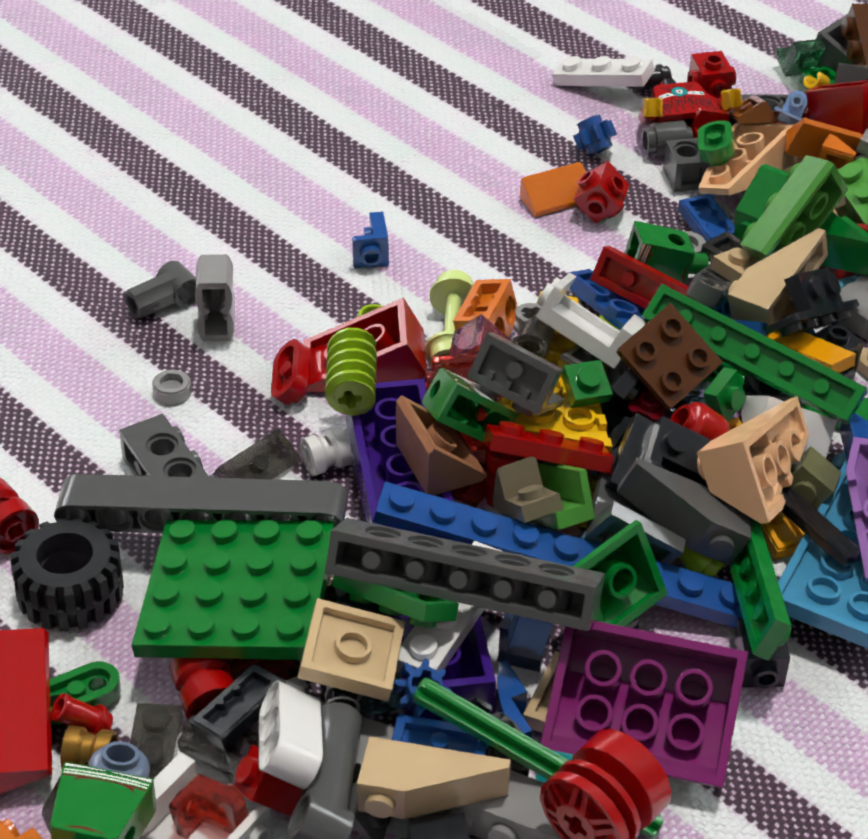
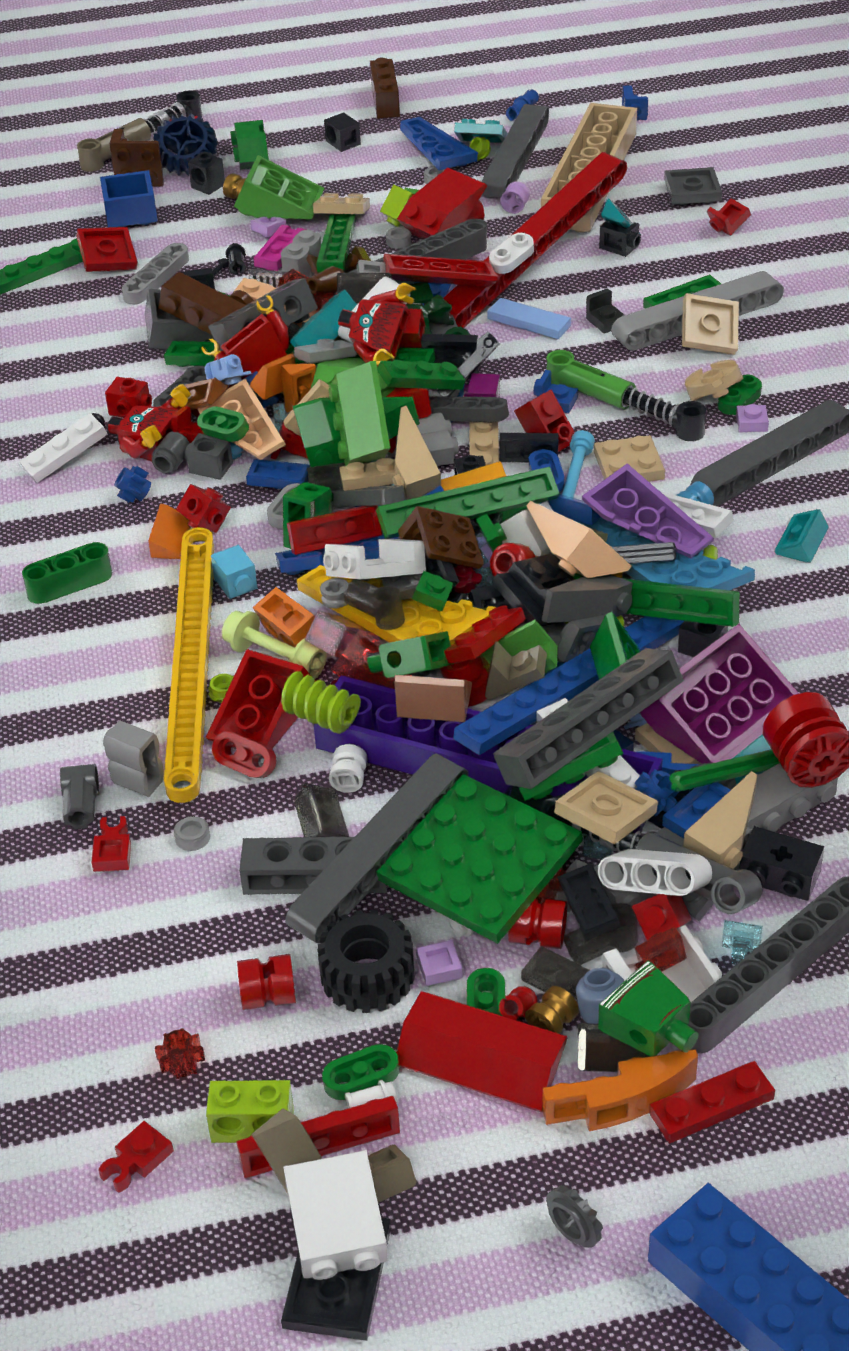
camera: 55 degrees left, 0 degrees up
(107, 633) = (439, 962): none -> lavender plate
(113, 343) = (112, 848): none -> red plate
(373, 246) = (138, 647): blue bracket -> none
(387, 282) = (190, 667): none -> yellow gear
(440, 153) = (67, 572): none -> green beam
(516, 375) = (426, 607): dark grey bracket -> none
(536, 253) = (234, 571): none -> medium azure brick
(800, 56) = (150, 354): clear green bracket -> none
(816, 301) = (451, 463): black bracket -> none

